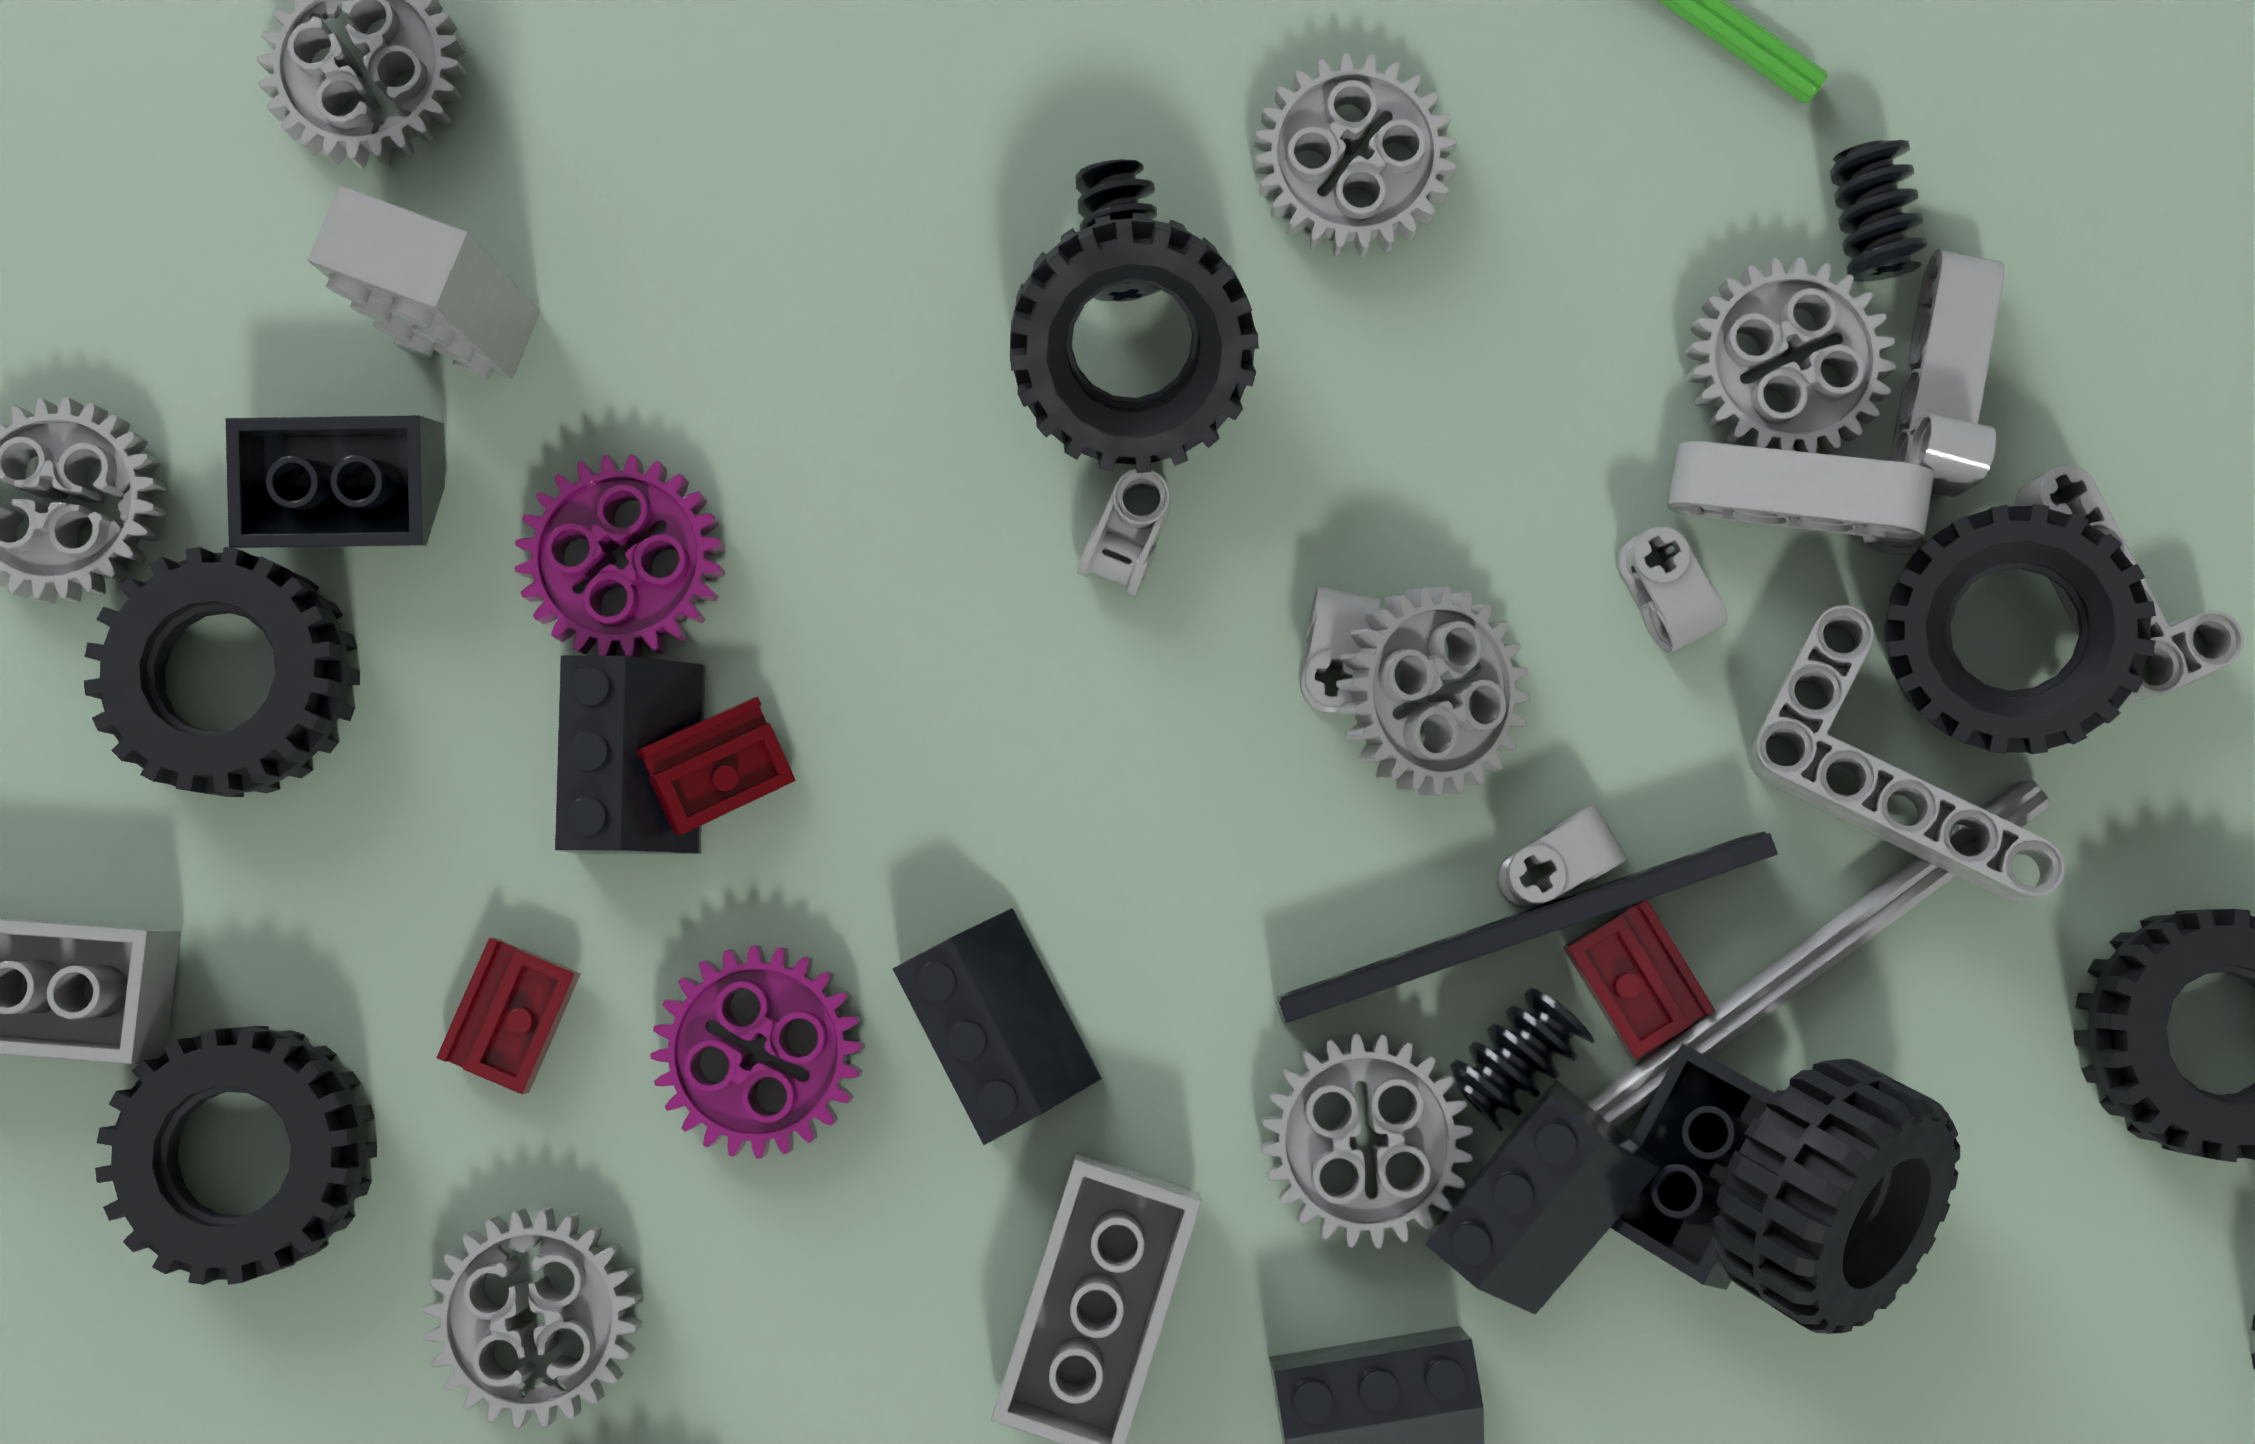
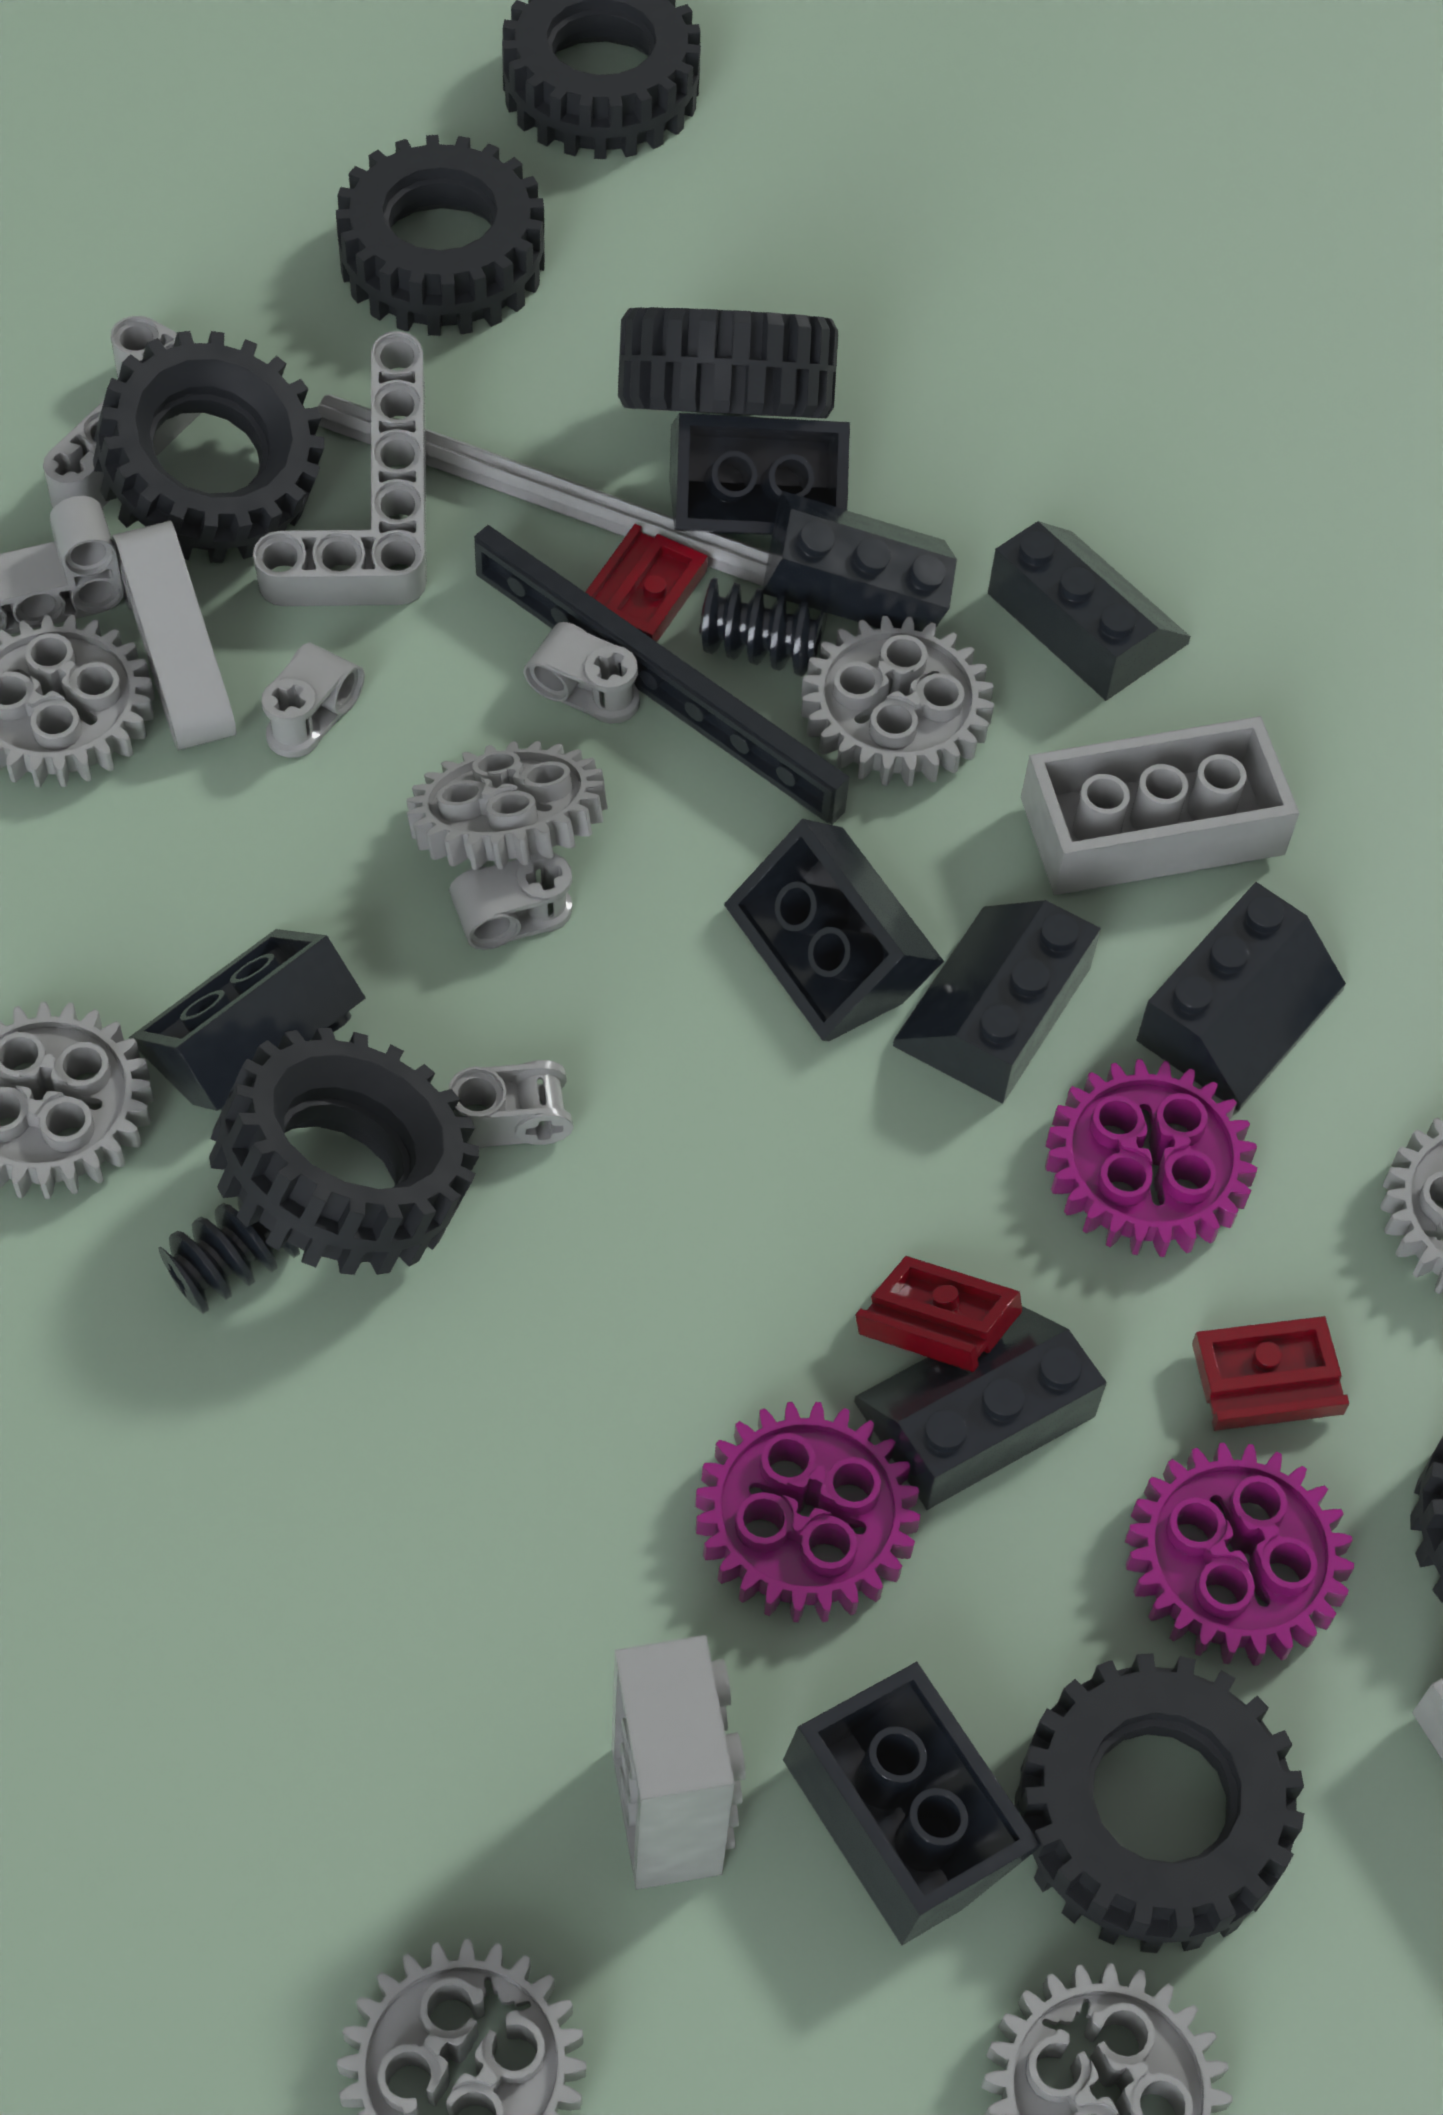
camera: 125 degrees left, 25 degrees down
(365, 934) = (1293, 1536): none -> magenta gear
(863, 1248) = (1243, 996): none -> black slope
(1145, 917) = (832, 930): none -> black slope
(1343, 357) = (268, 990): none -> black slope

